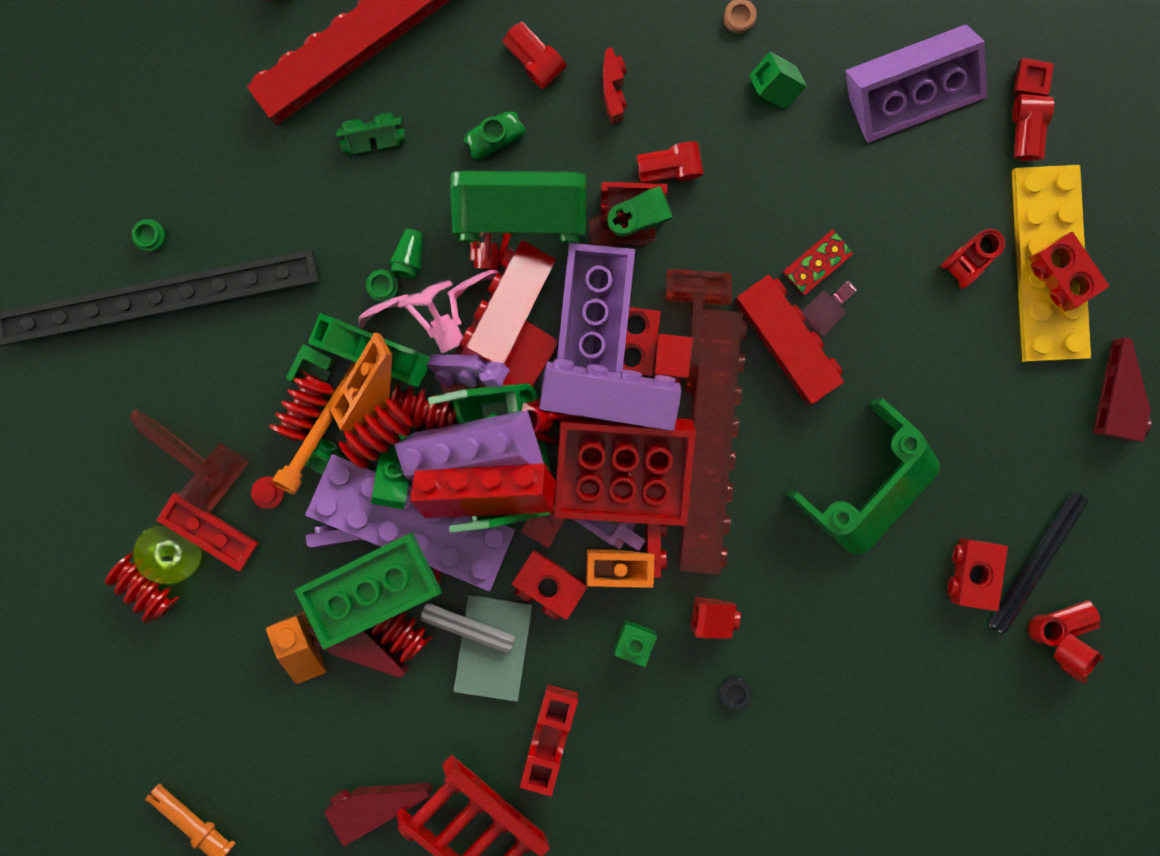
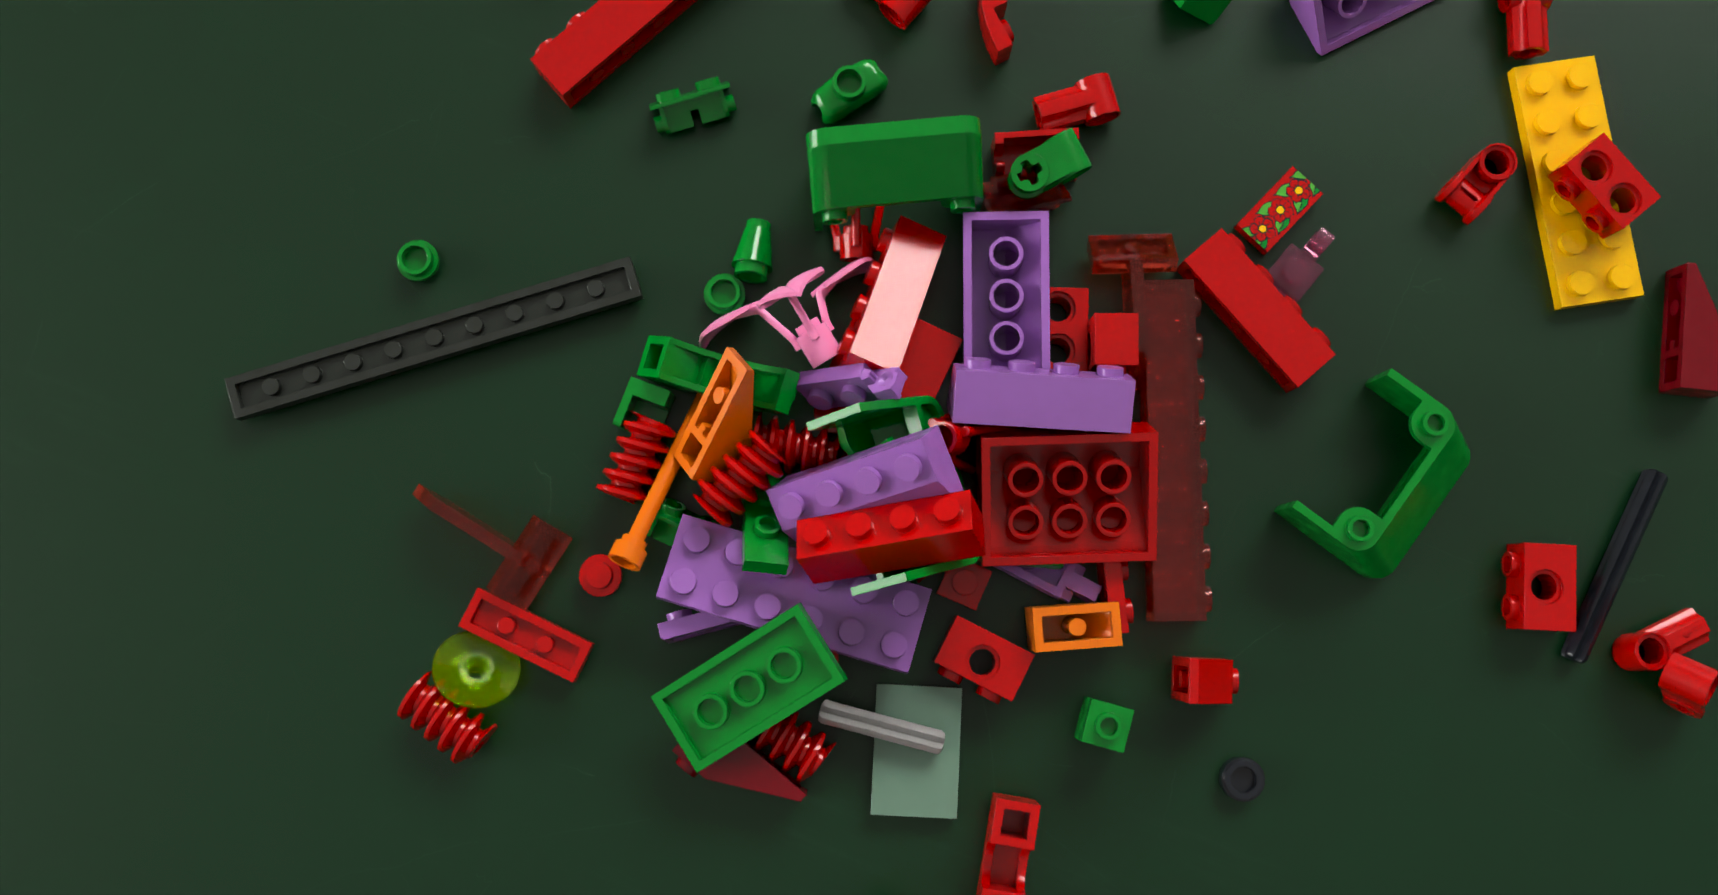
camera: 10 degrees left, 5 degrees down
(295, 648) = (658, 778): orange slope -> none

